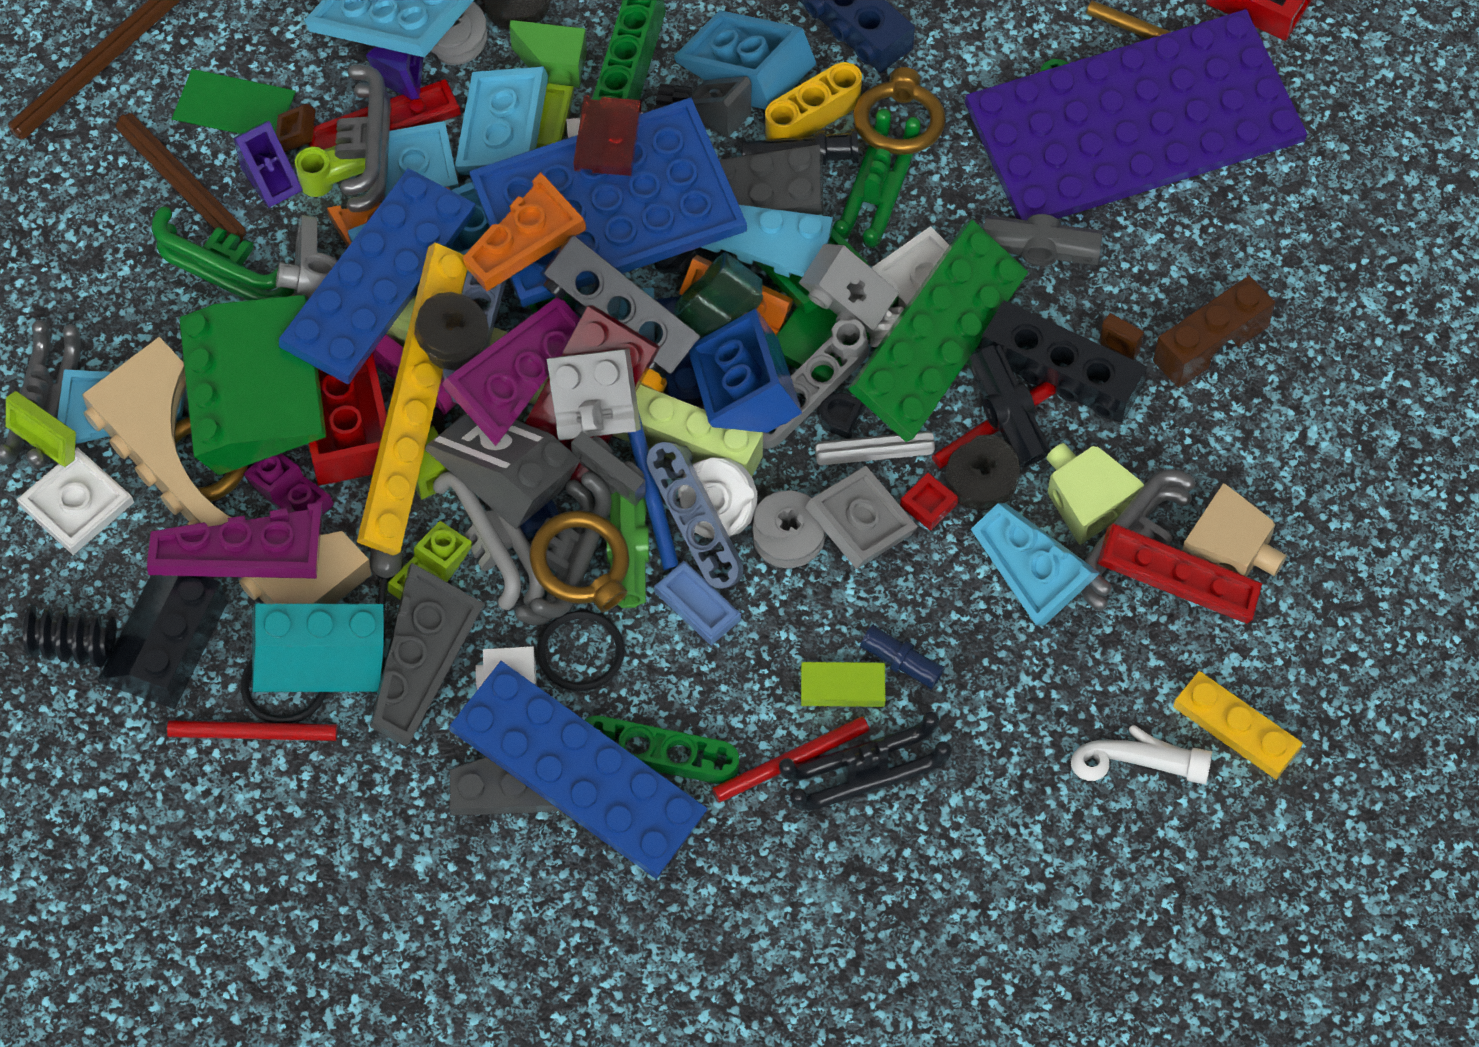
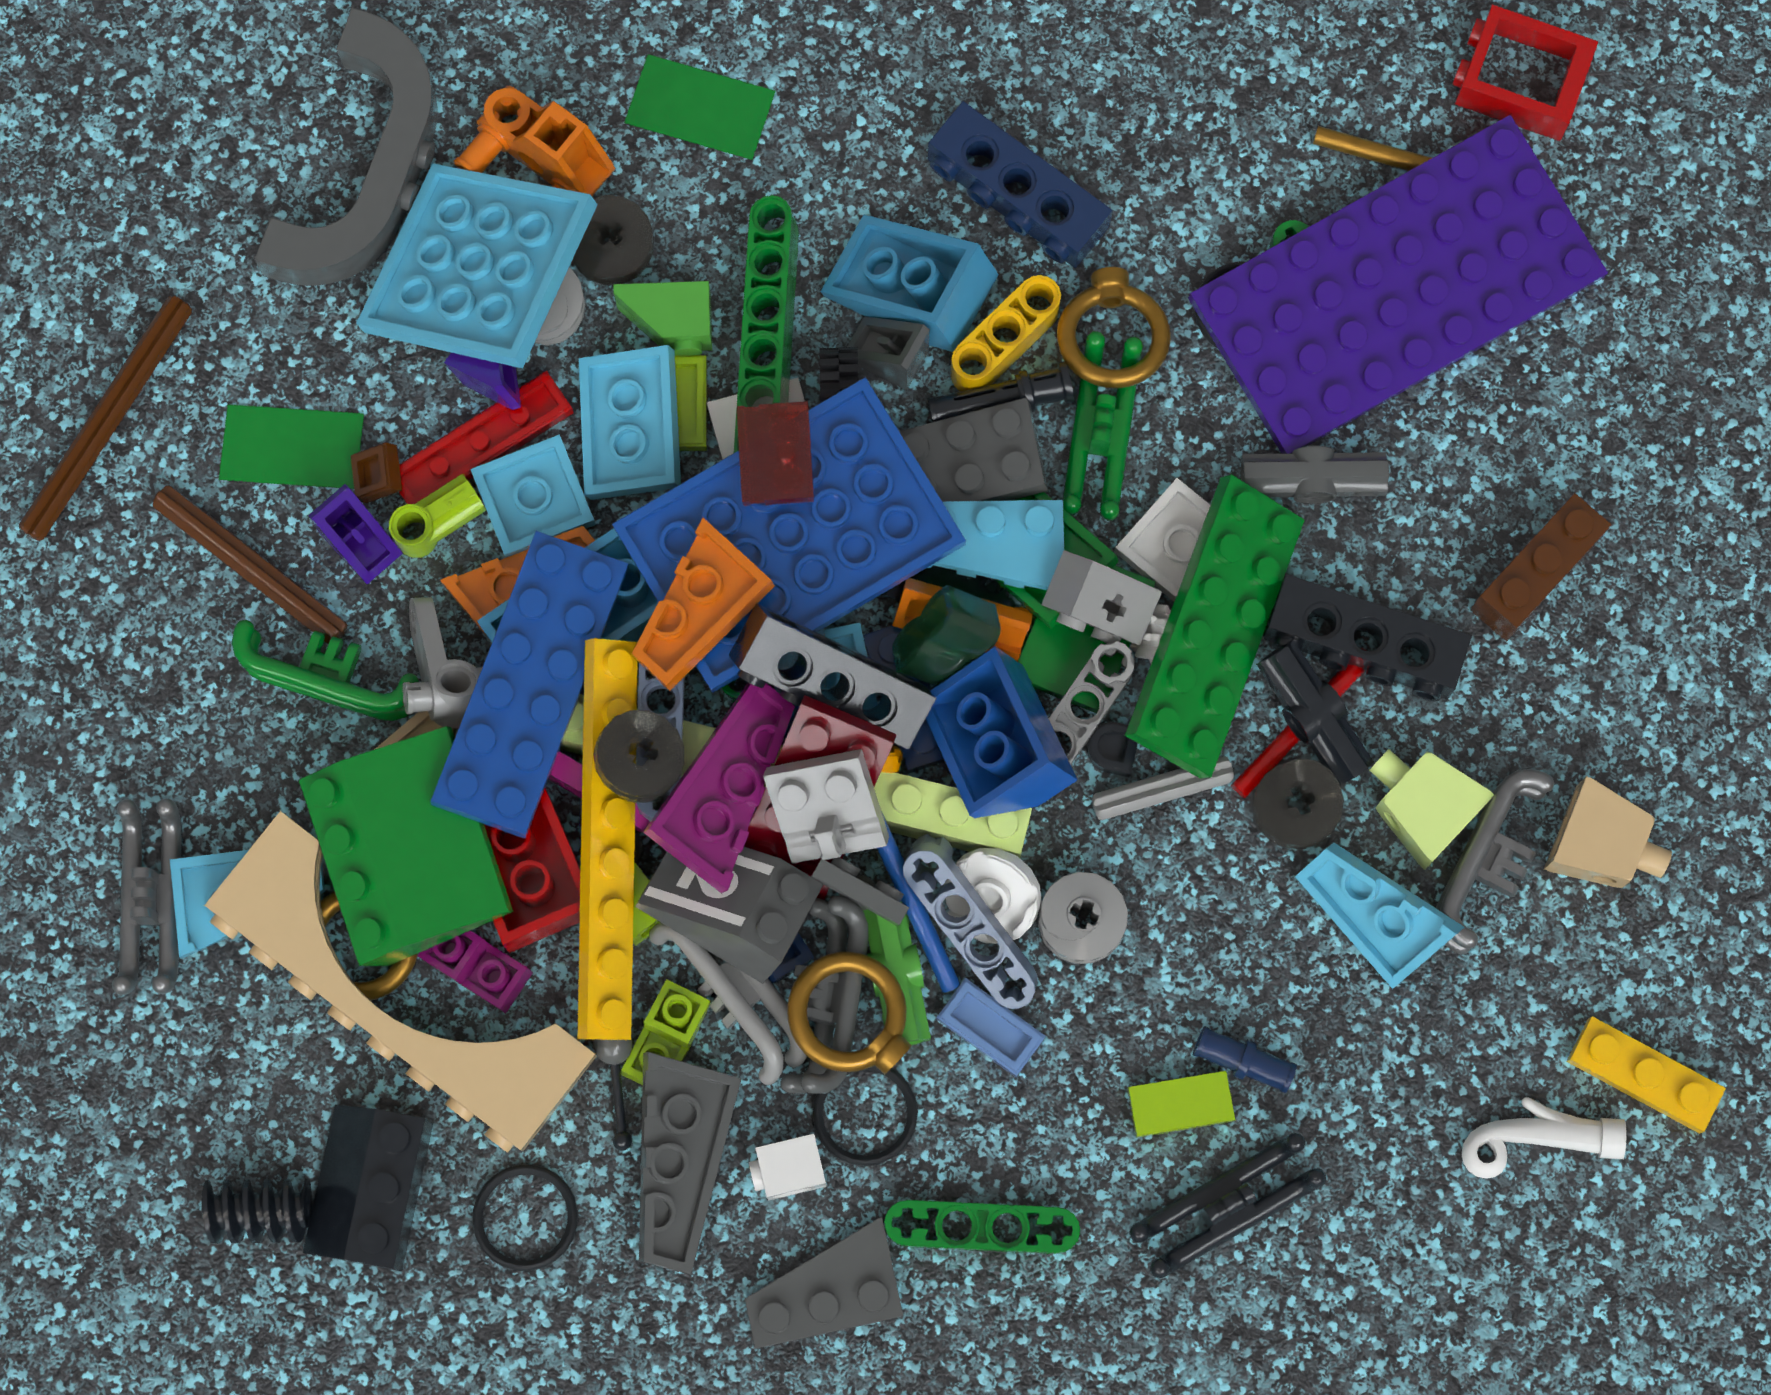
camera: 10 degrees left, 15 degrees up
(40, 429) = (160, 949): lime tile -> none
(75, 502) = (221, 1023): white tile -> none
(252, 730) = (500, 1286): red bar -> none
(259, 547) = (458, 1071): magenta wing -> none
(317, 647) = (558, 1178): teal slope -> none
(366, 139) = (473, 485): flat silver piece -> none
(578, 769) = (896, 1279): blue plate -> none
(799, 755) = (1137, 1210): red bar -> none
(861, 517) = (1166, 890): light grey hinge -> none
(929, 501) = (1240, 850): red plate -> none
(1121, 336) = (1431, 593): reddish brown tile -> none
(1179, 573) = (1552, 900): red tile -> none

